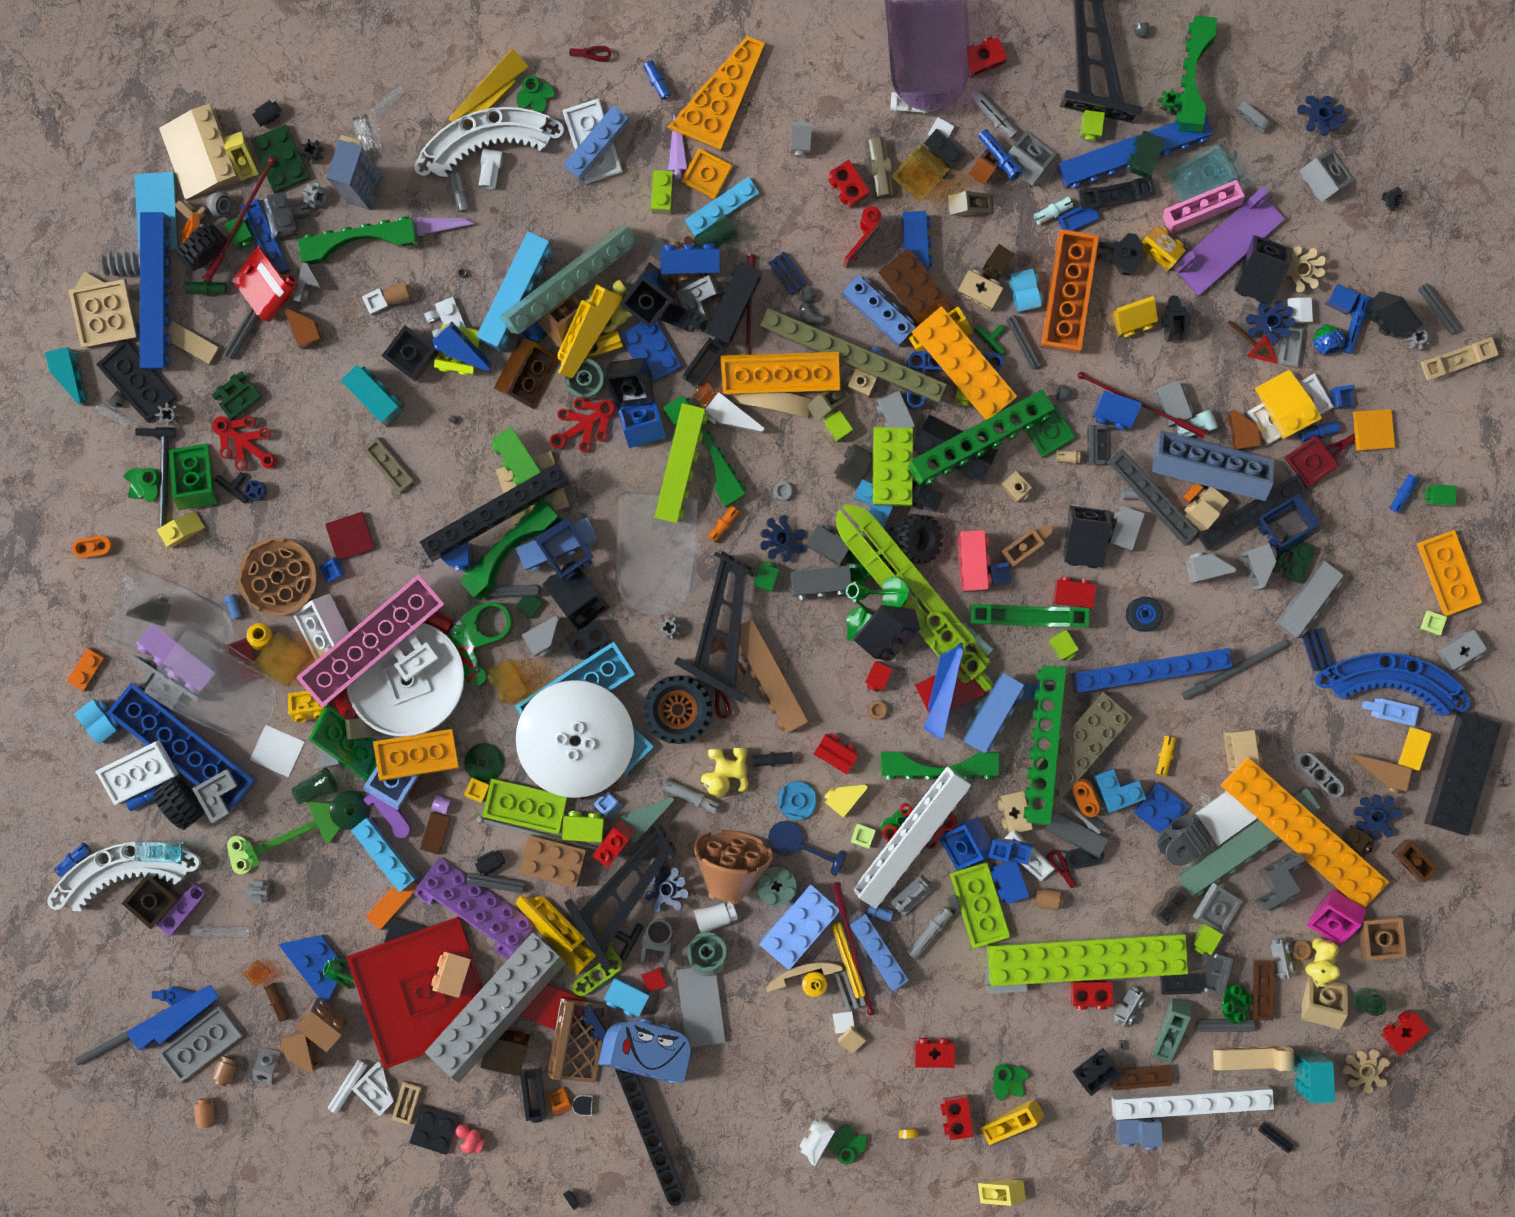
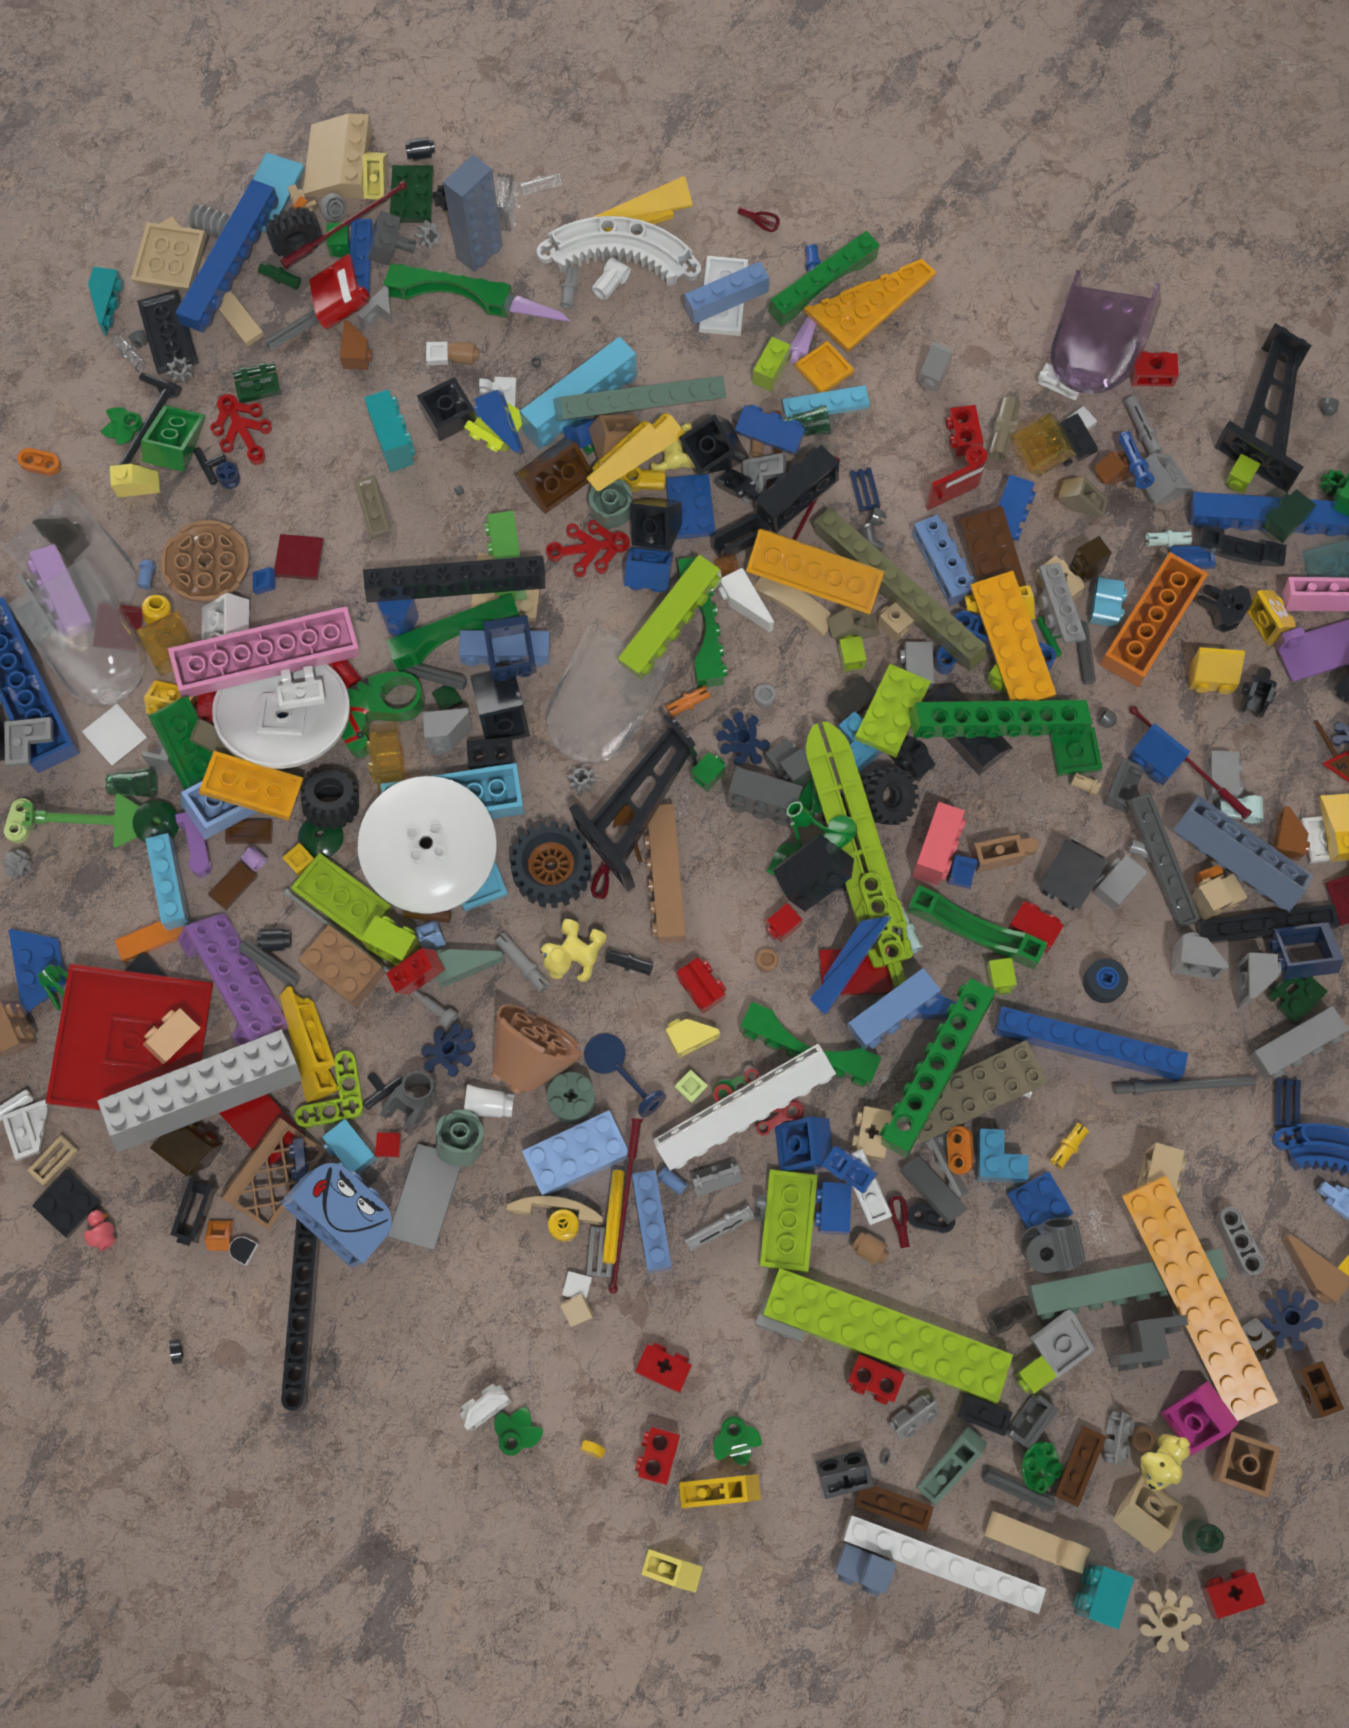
camera: 25 degrees right, 15 degrees down
(471, 719) = (329, 784): none -> black tyre
(534, 97) = (688, 233): green plate -> none
(600, 940) = (349, 1069): black piece -> none
(671, 90) = (800, 293): none -> green arch
(797, 800) = (636, 1018): dark azure tile -> none
(989, 315) = (1058, 605): none -> light grey bracket
(1016, 487) = (1017, 791): tan brick -> none
(1224, 817) = (1112, 1244): white tile -> none
(1276, 1138) = (1027, 1656): black axle -> none

